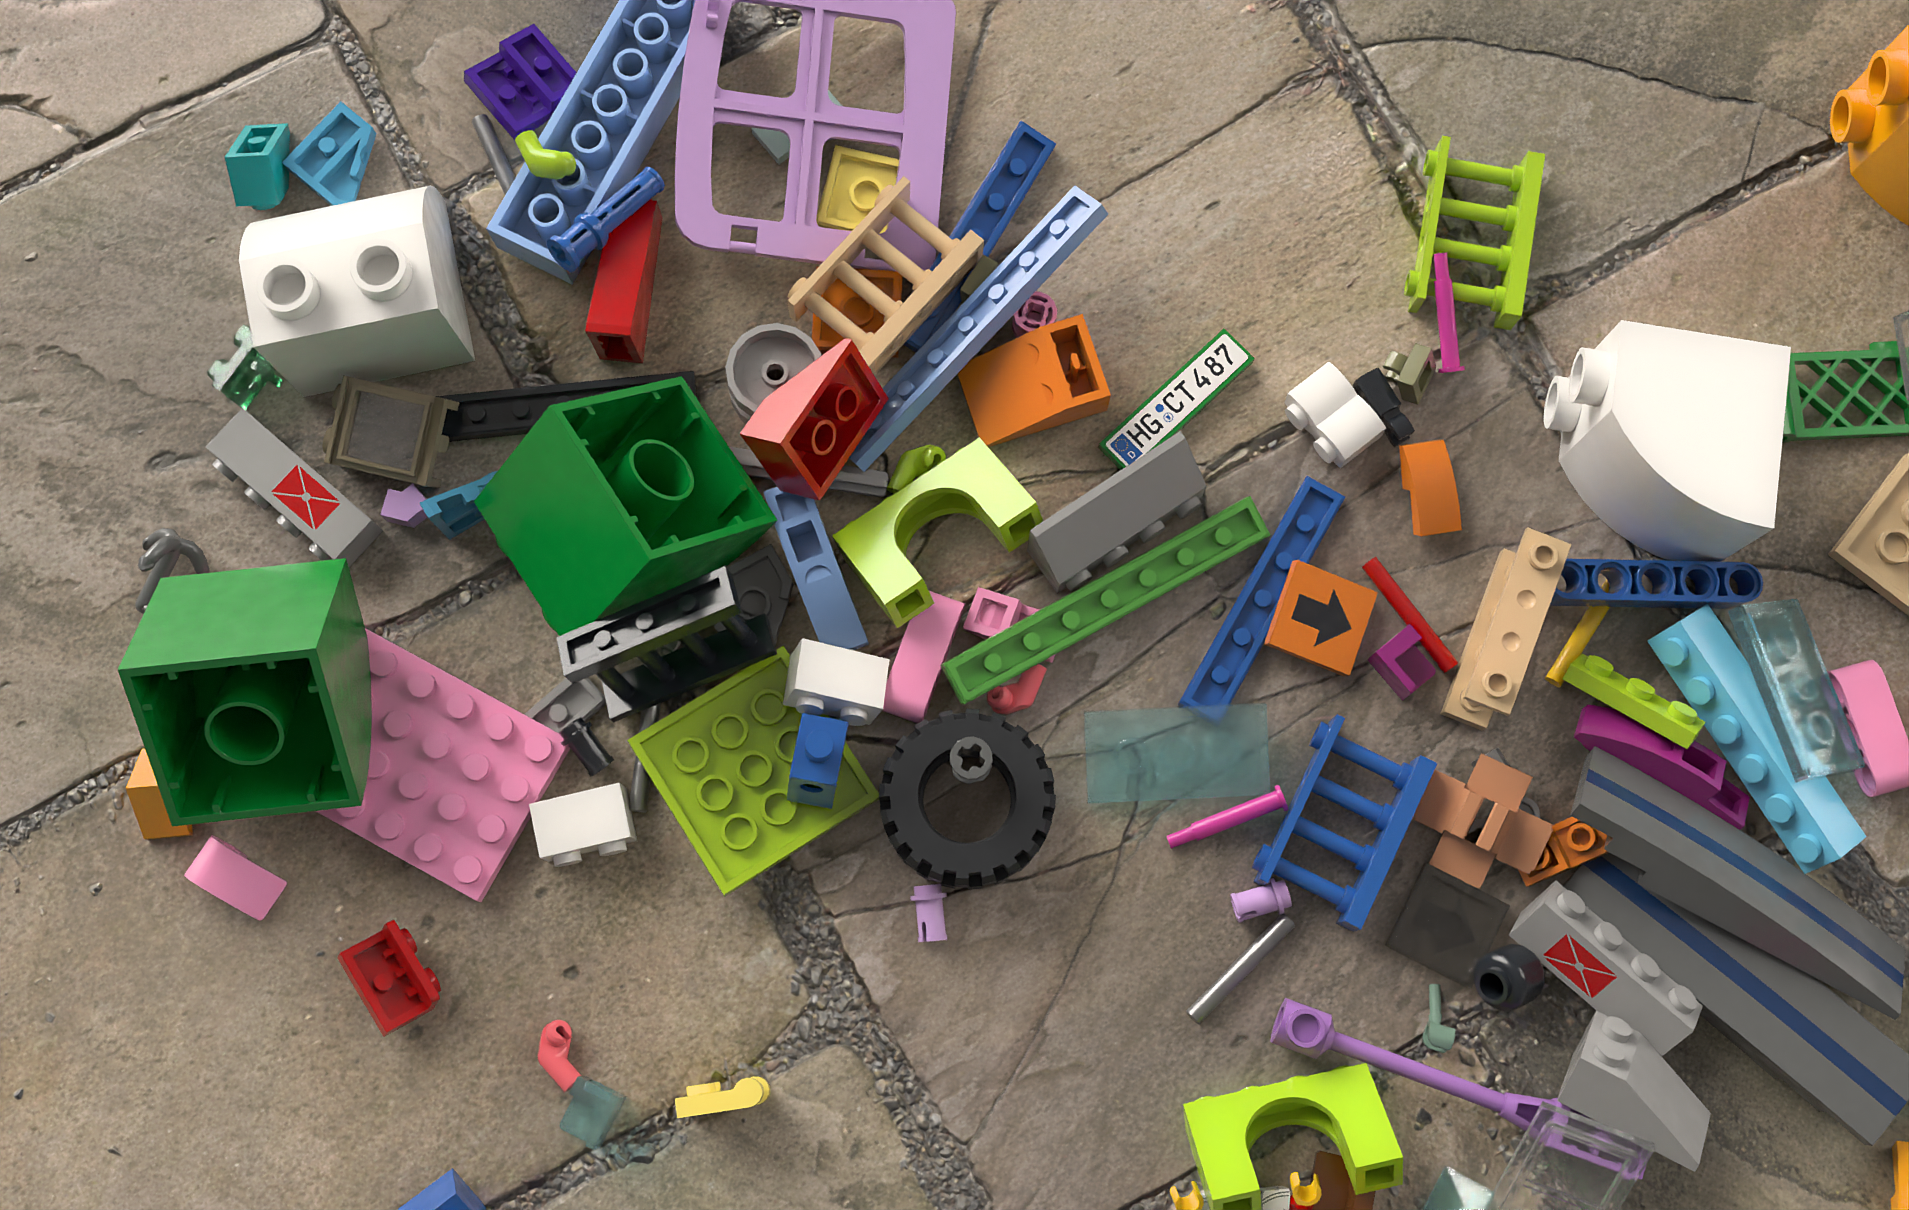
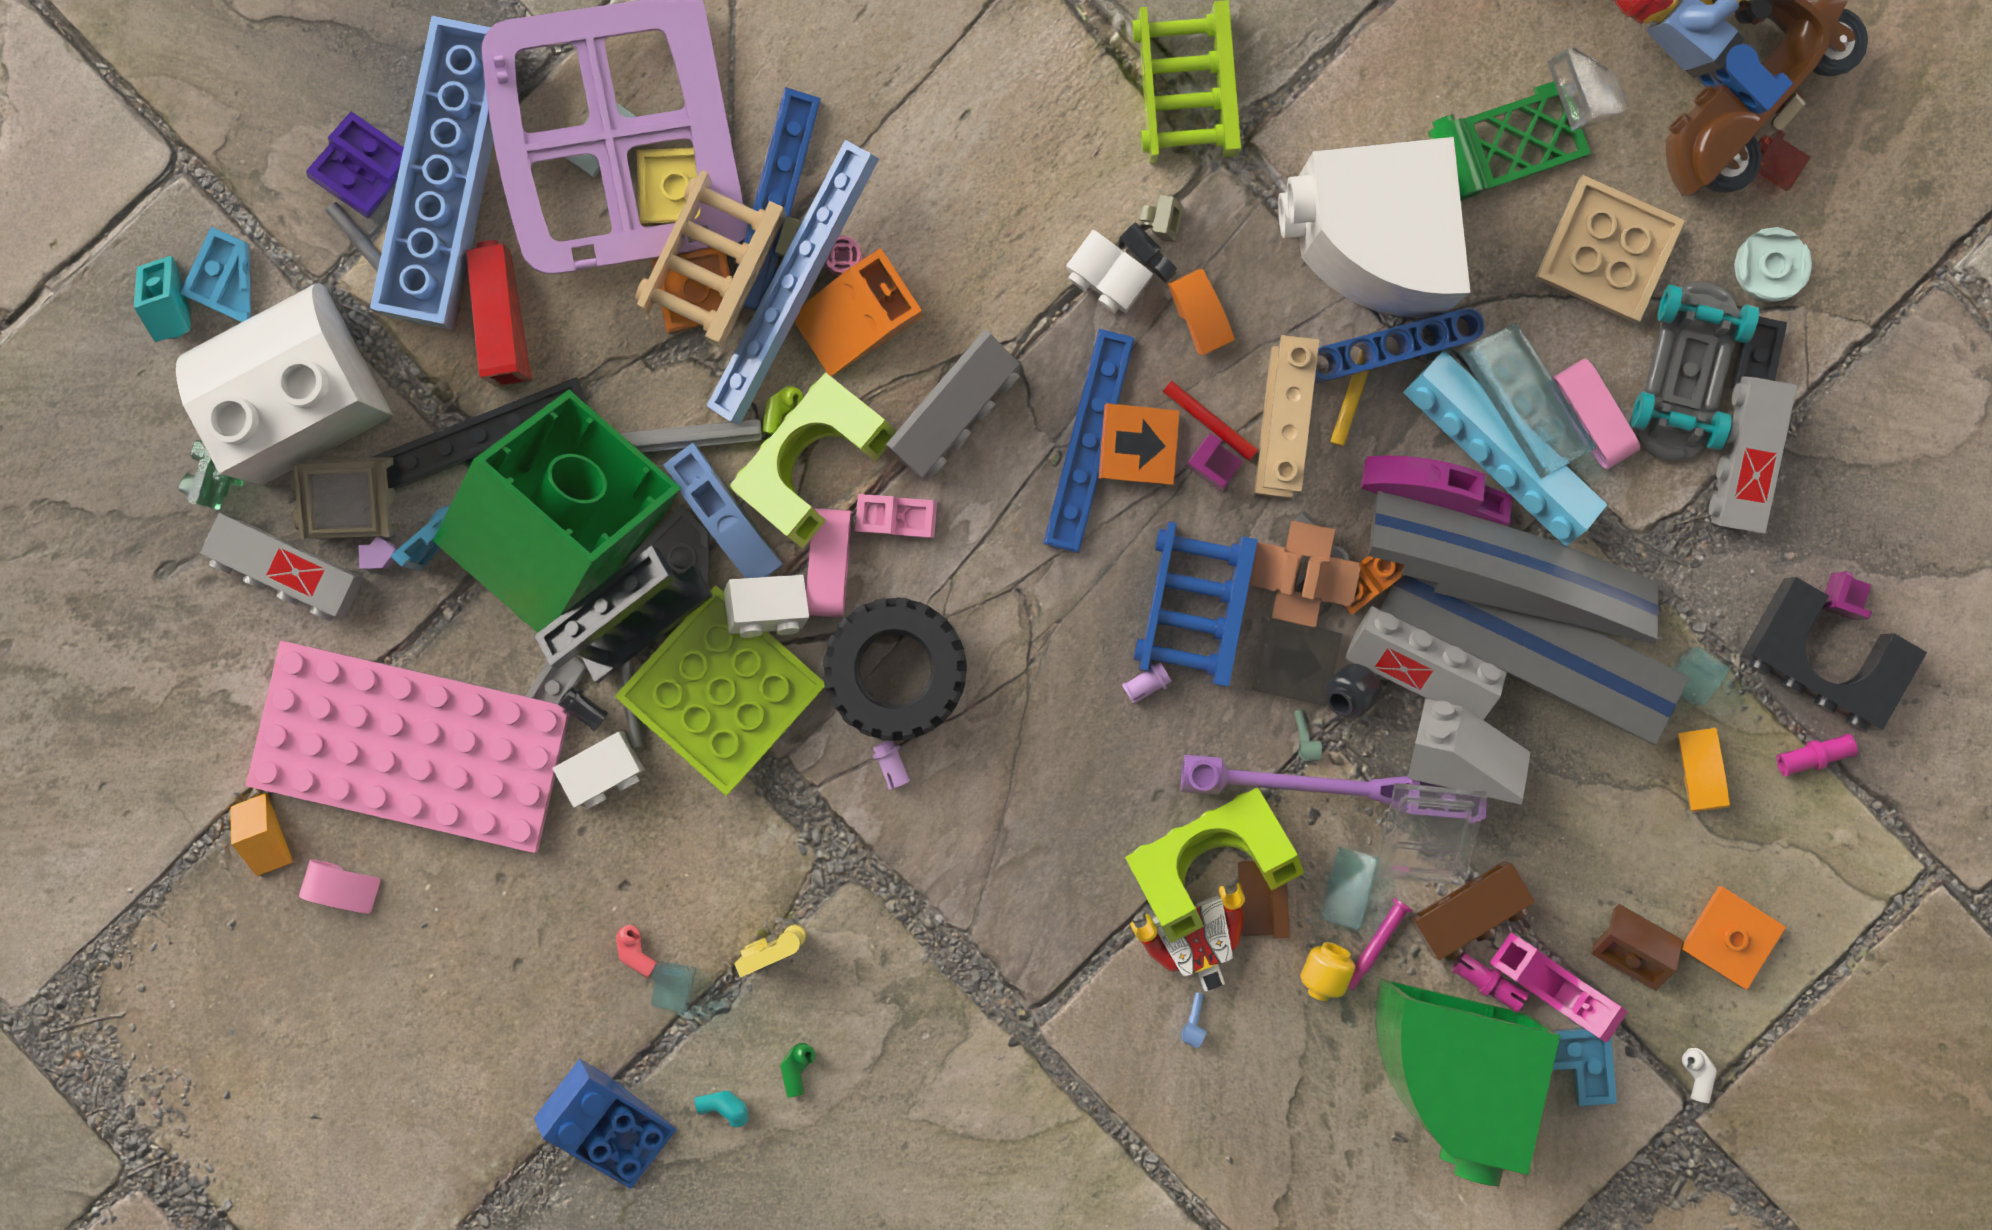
camera: 10 degrees left, 10 degrees up
(163, 552) = (196, 652): dark grey piece -> none
(253, 691) = (309, 742): green brick -> none
(391, 978) = (486, 930): red bracket -> none
(544, 162) = (401, 240): lime arm -> none
(592, 229) = (457, 291): blue pin -> none
(764, 362) = (635, 349): light grey wheel -> none
(815, 421) = (689, 399): red slope -> none
(817, 760) = (768, 671): blue torso -> none
(966, 746) = (883, 632): dark grey bush -> none
(1017, 695) = (914, 572): coral arm -> none
(1104, 600) = (963, 477): bright green tile -> none
(1176, 752) = (1051, 584): clear light blue tile -> none
(1178, 400) = (978, 294): tile -> none
(1230, 818) = (1106, 625): dark pink piece -> none
(1240, 968) = (1144, 739): flat silver bar -> none
(1446, 316) = (1180, 163): dark pink piece -> none
(1635, 699) = (1402, 444): lime plate -> none

